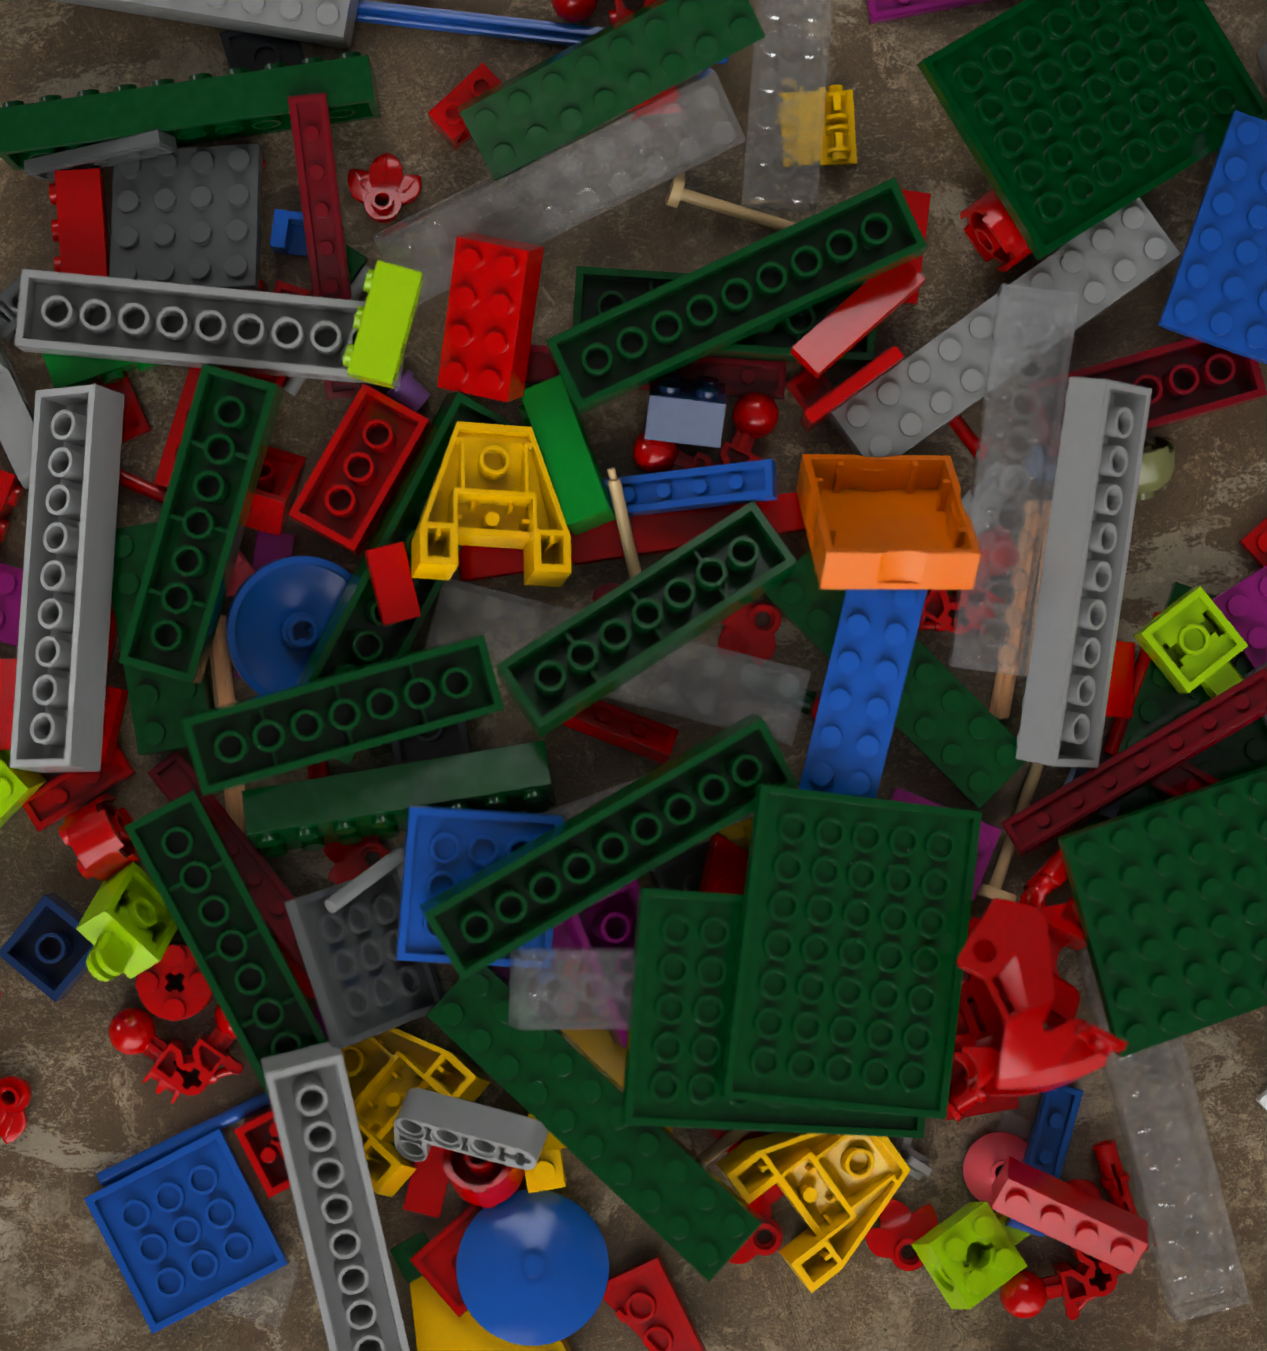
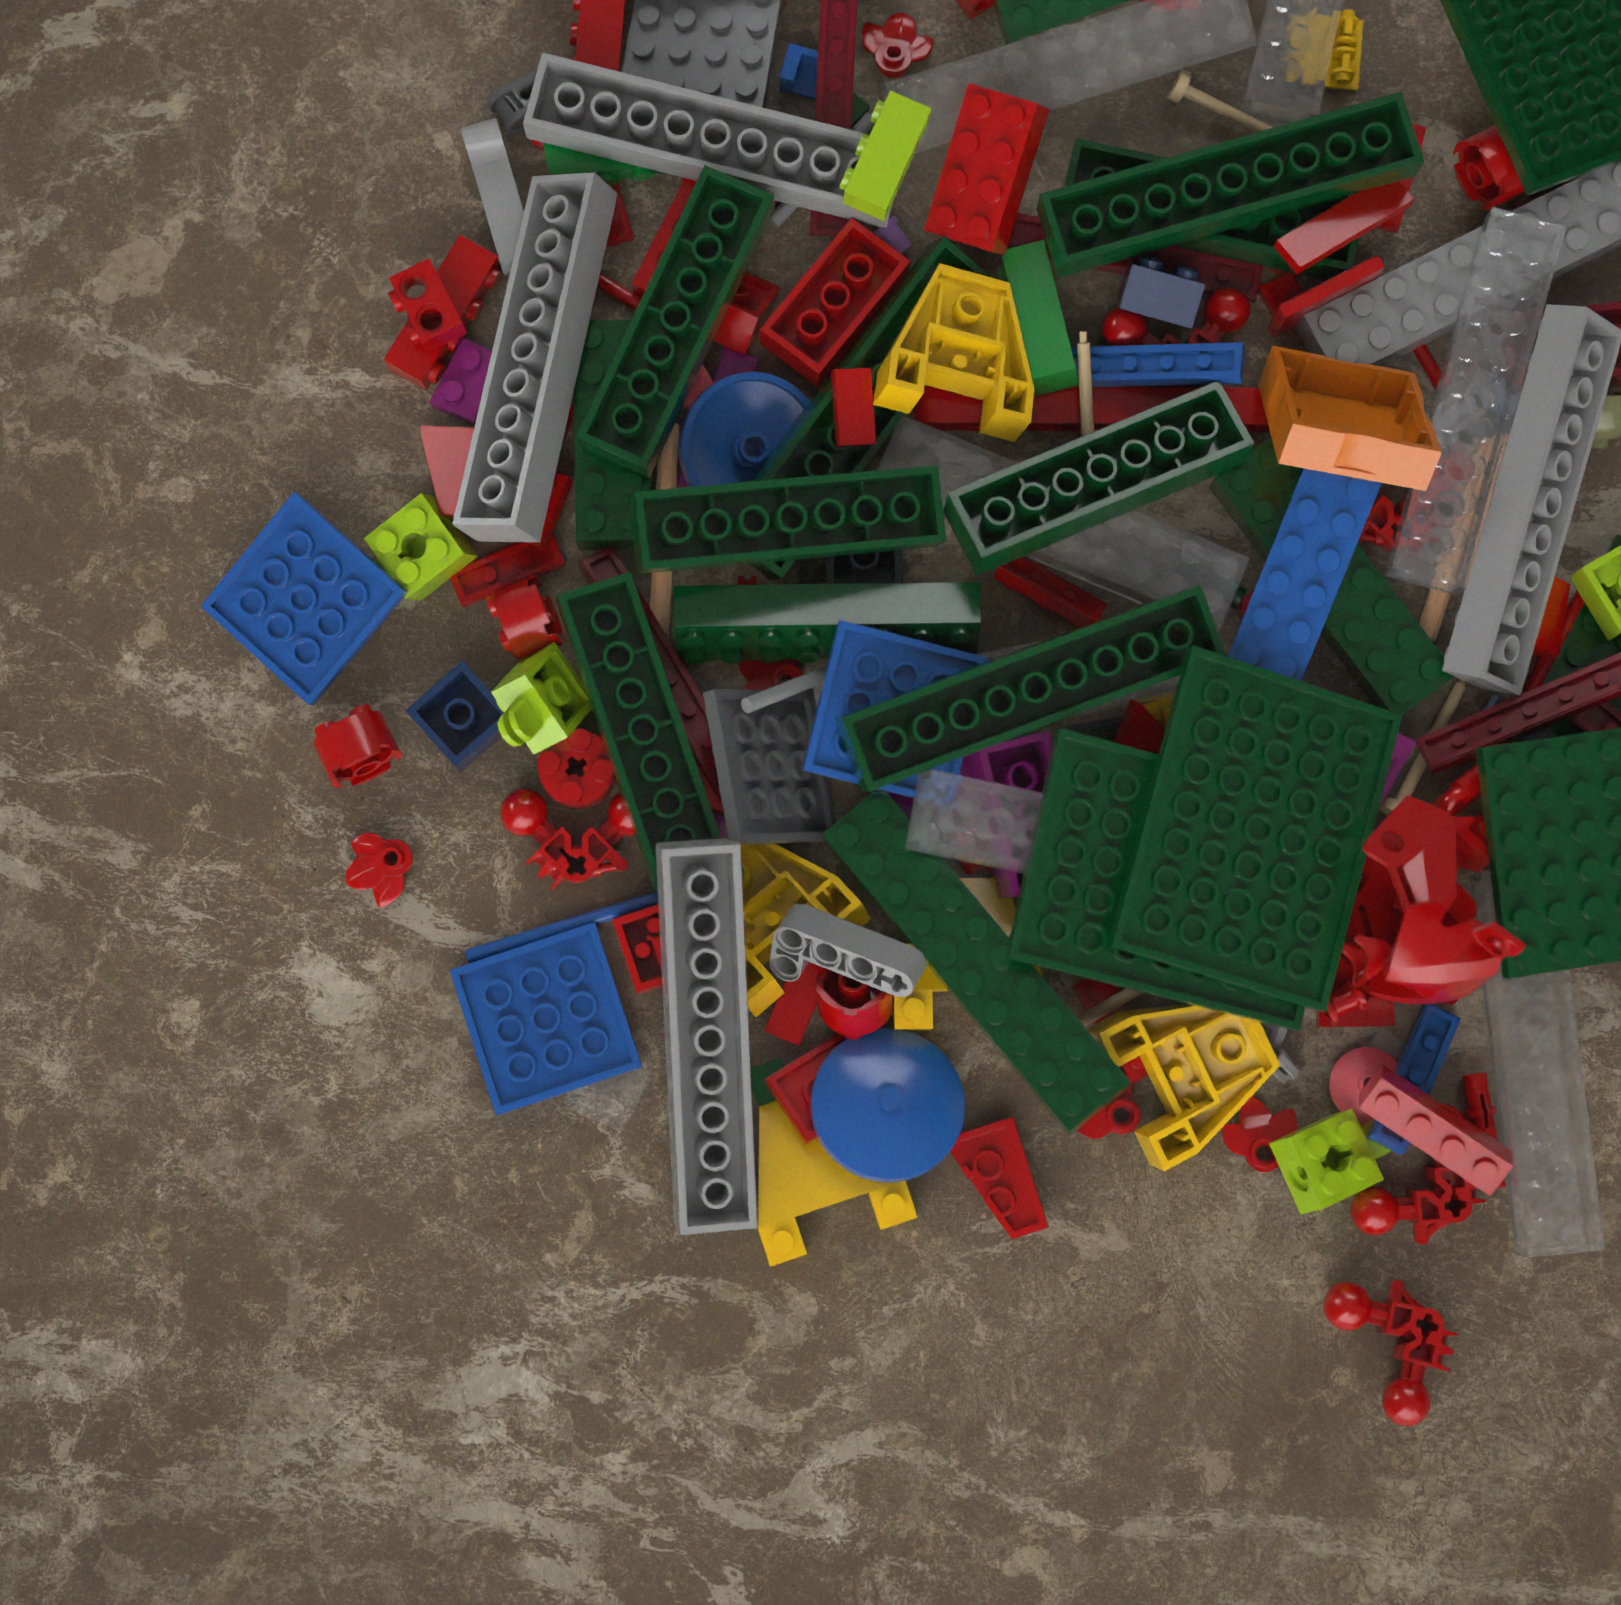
camera: 10 degrees right, 5 degrees down
(745, 635) = (1185, 515): red plate -> none

